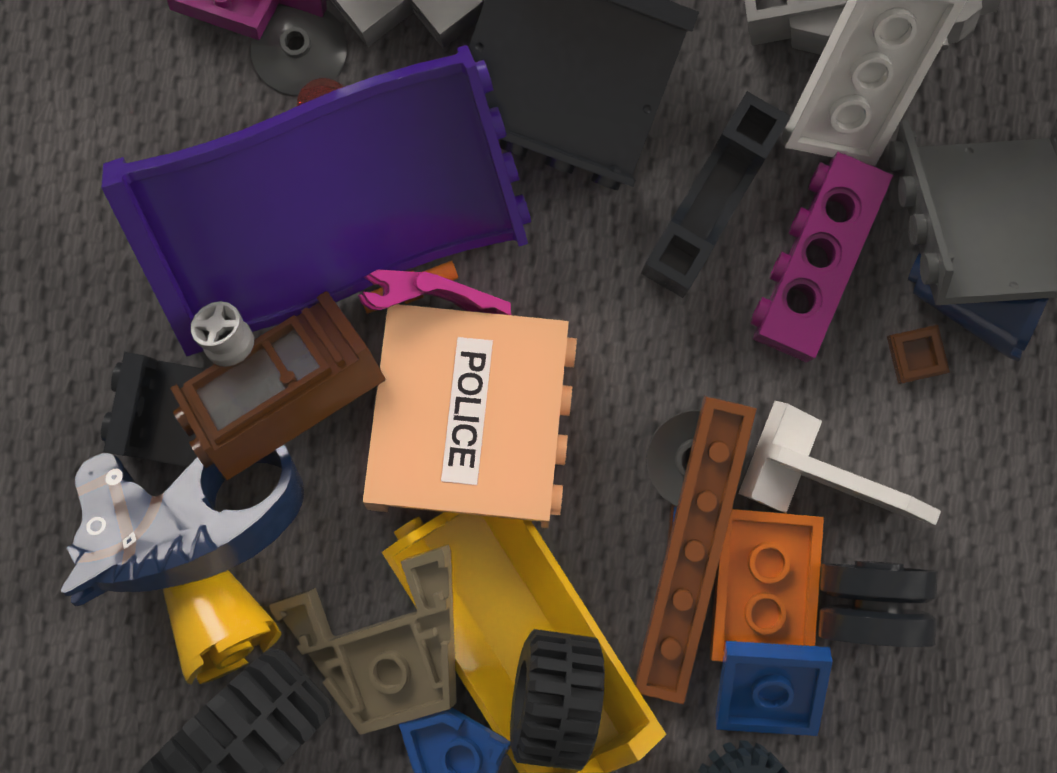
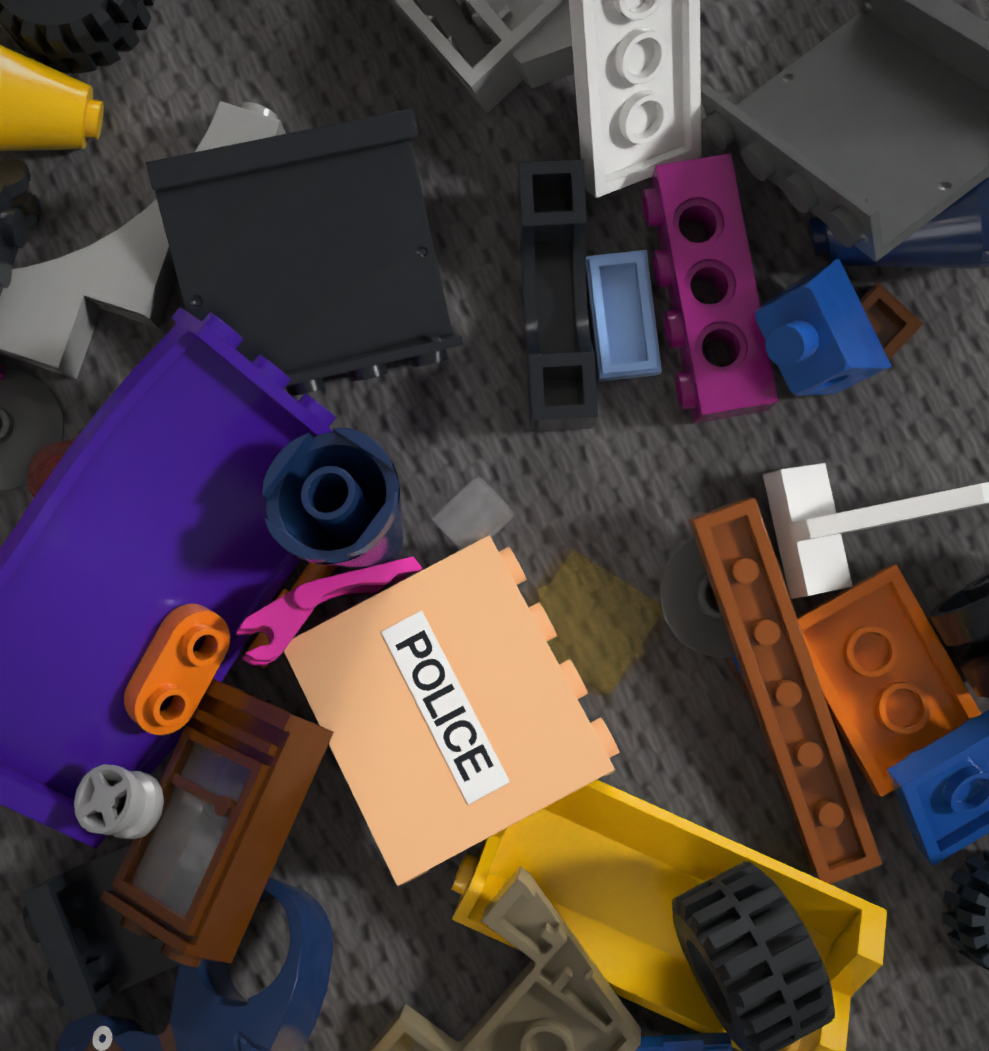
camera: 40 degrees left, 0 degrees up
(312, 274) = (174, 669): none -> orange plate
(484, 232) = (335, 500): none -> dark blue cone
(567, 302) = (473, 514): none -> clear gear
(602, 425) = (596, 620): none -> clear yellow piece
(752, 237) = (622, 315): none -> light blue tile
(873, 333) = (821, 334): none -> blue torso

